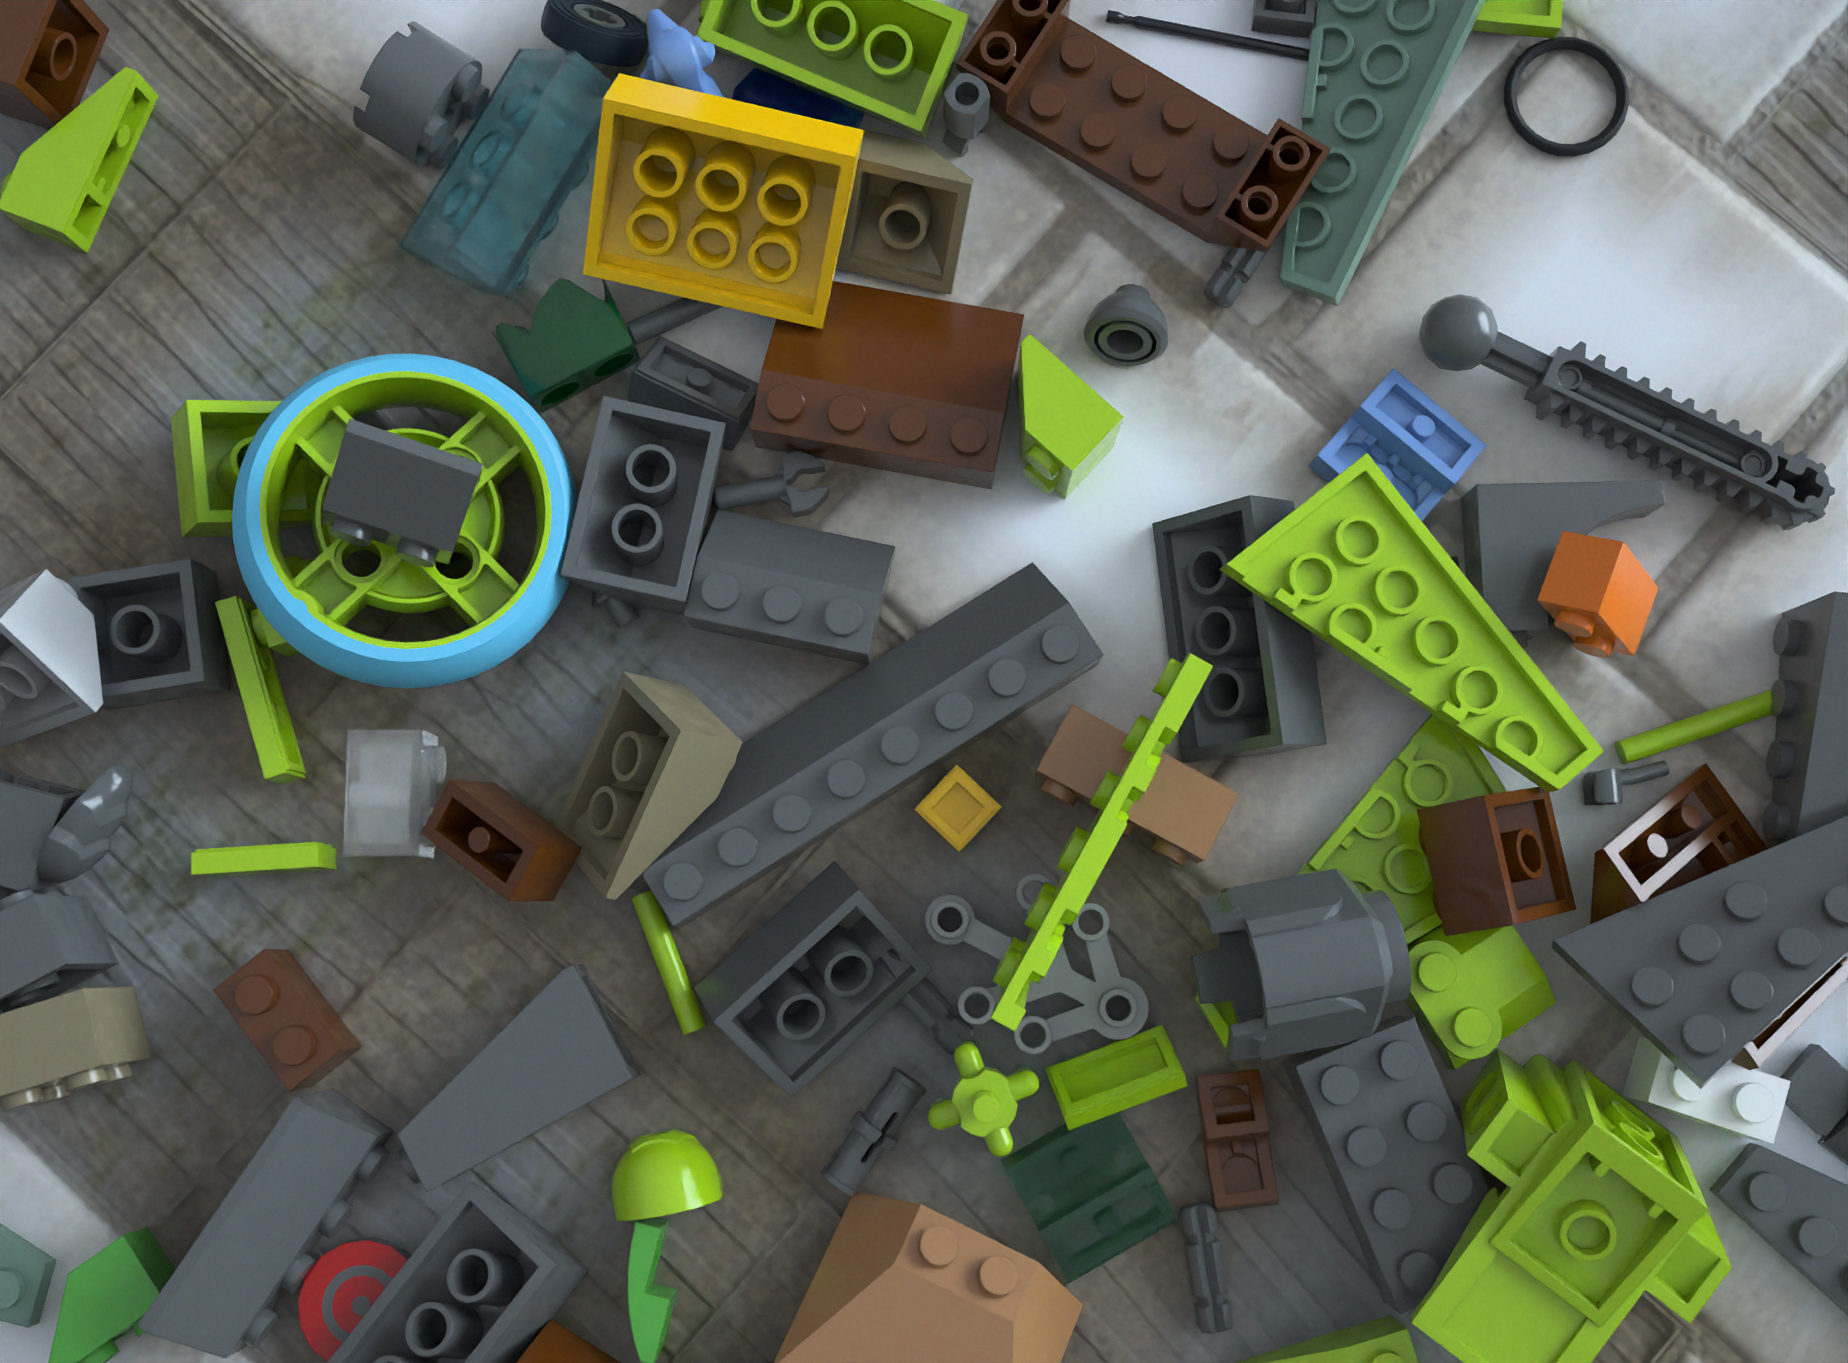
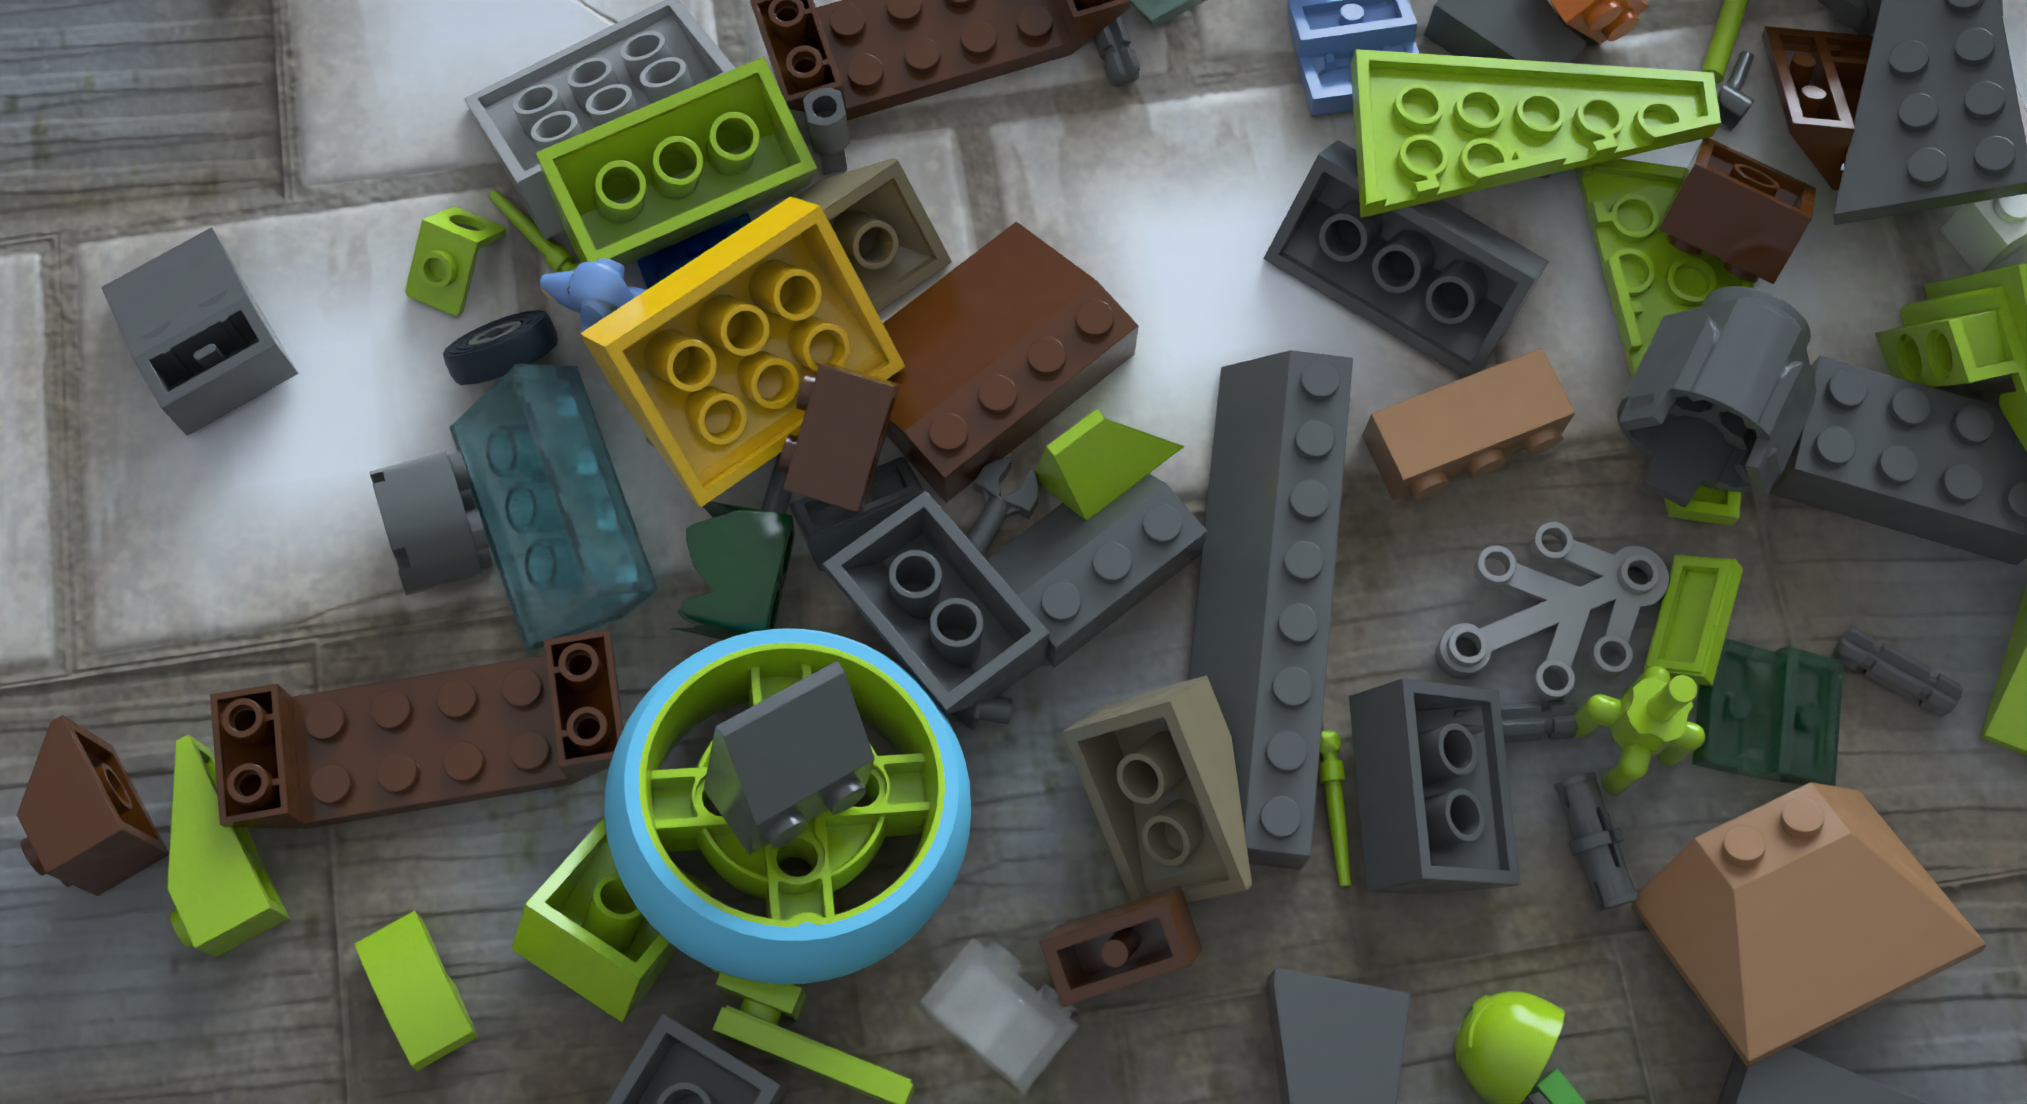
camera: 55 degrees left, 10 degrees down
(93, 380) = (415, 991): none -> lime slope
(261, 220) = (417, 738): none -> reddish brown slope
(668, 962) = (1325, 901): lime piece -> none
(713, 325) = (838, 435): none -> reddish brown brick
(771, 895) = (1332, 775): none -> lime piece
(856, 534) = (1099, 462): none -> lime slope
(957, 808) = (1376, 575): yellow tile -> none
(1060, 421) = (1135, 248): lime slope -> none
(1089, 850) = (1515, 474): lime wing -> none
(1127, 327) = (1097, 152): dark grey brick -> none
(1236, 1140) = (1808, 573): reddish brown slope -> none
(1474, 990) = (1835, 298): lime slope -> none

